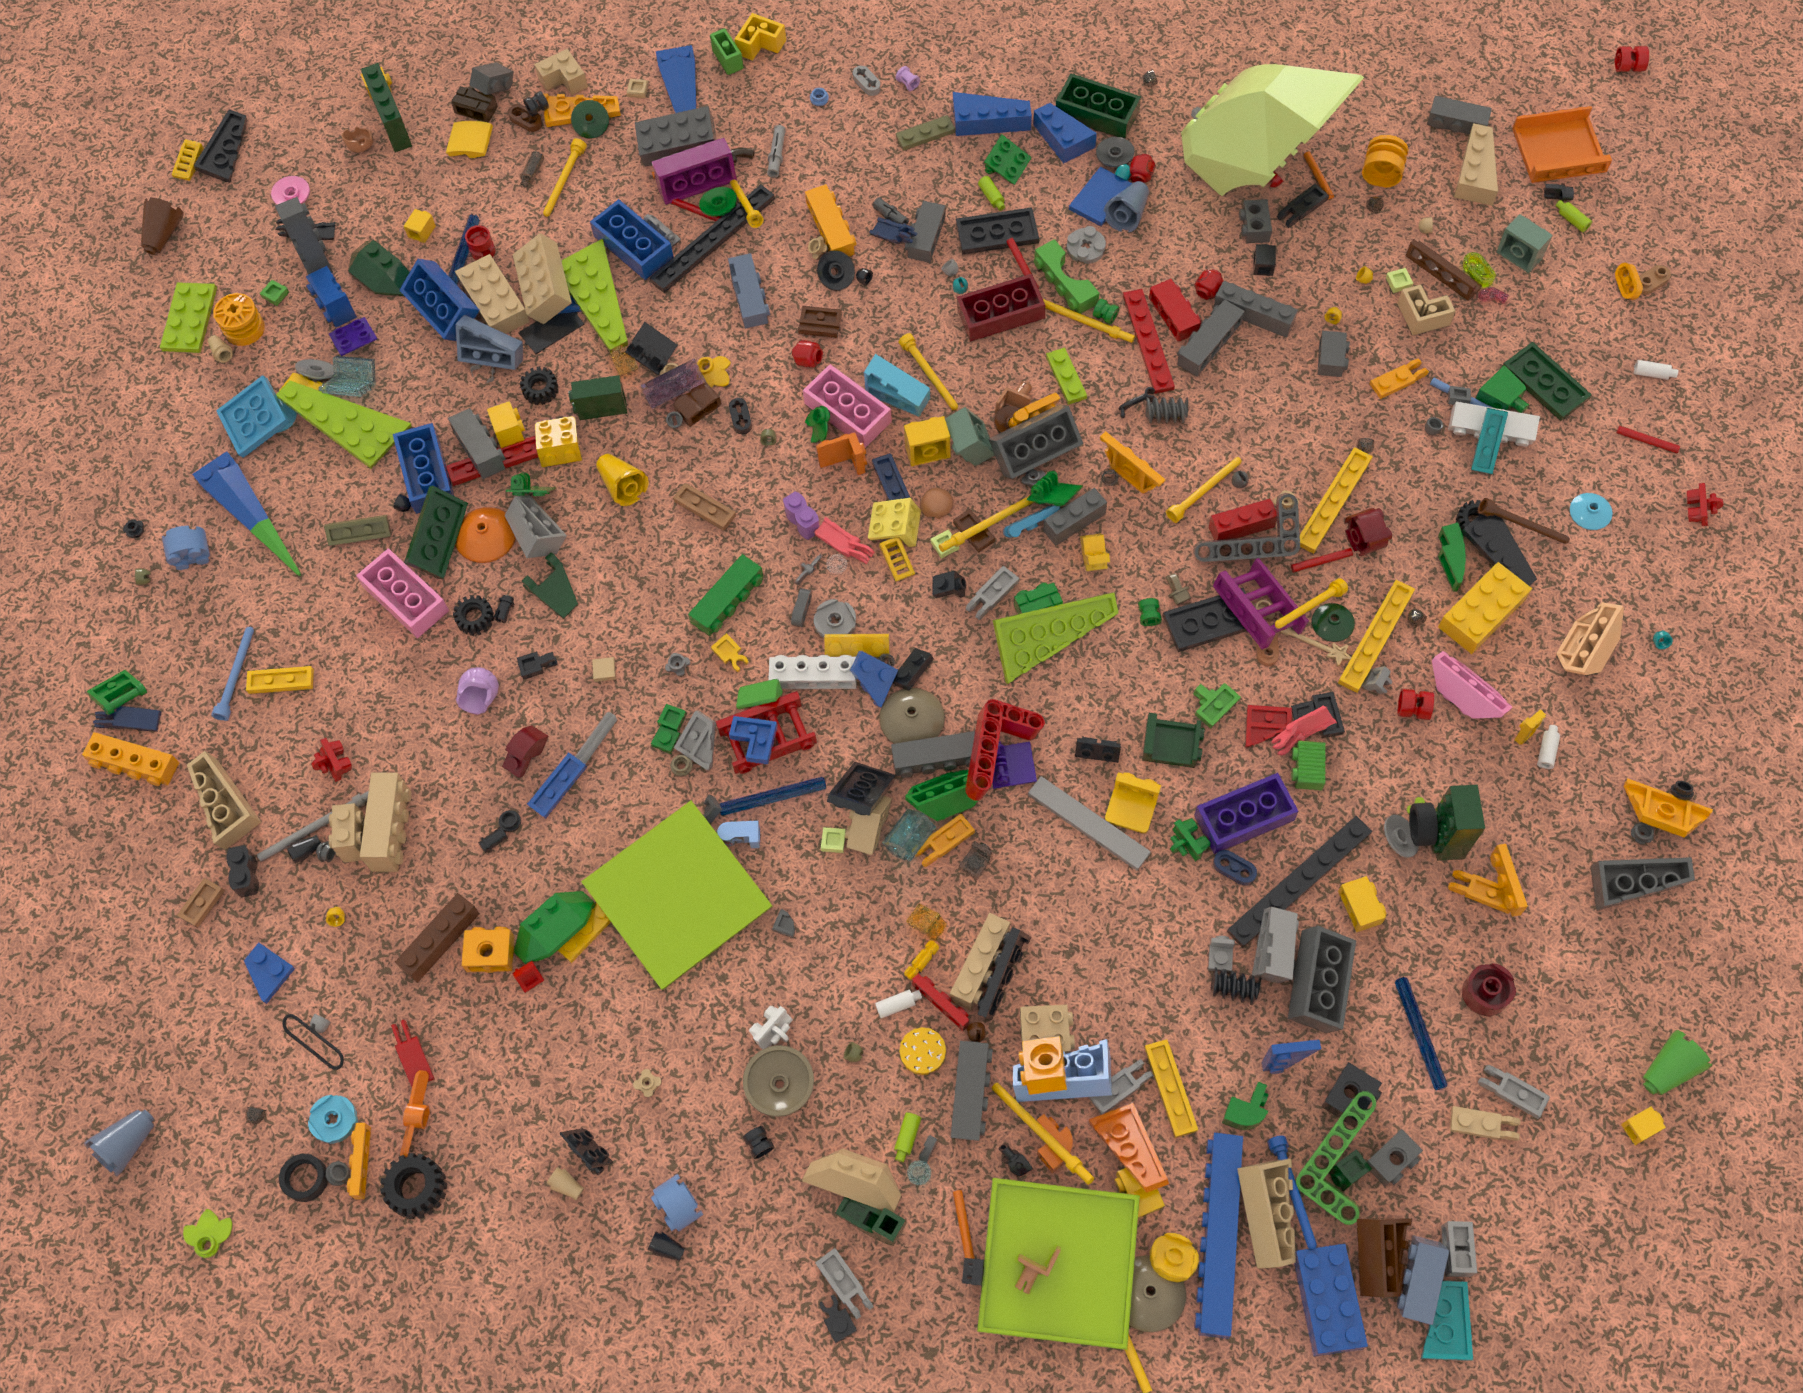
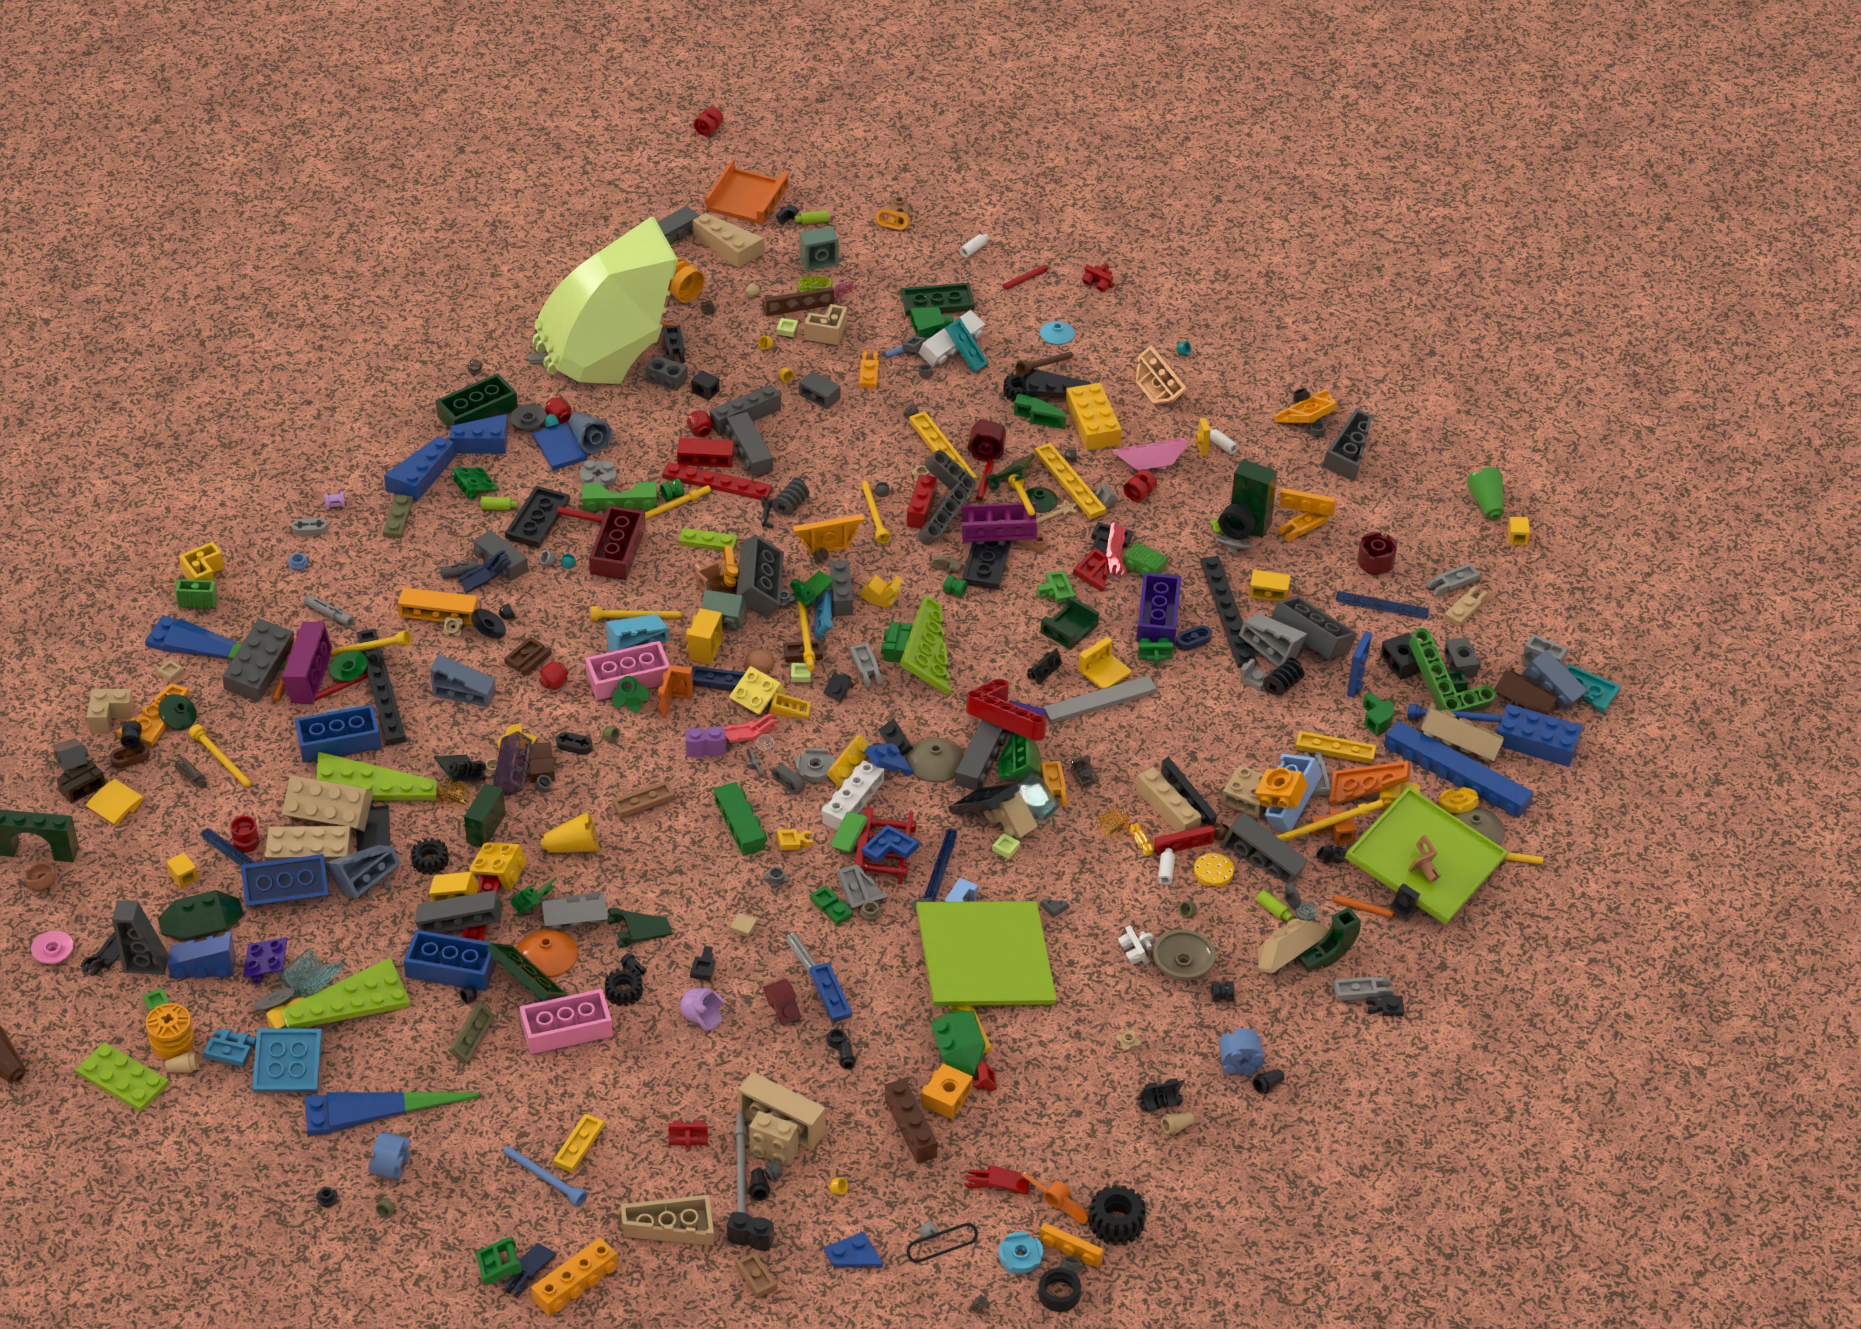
camera: 65 degrees left, 20 degrees down
(247, 367) = (229, 1052): none -> dark azure plate
(1347, 576) = (1016, 467): none -> dark green flag

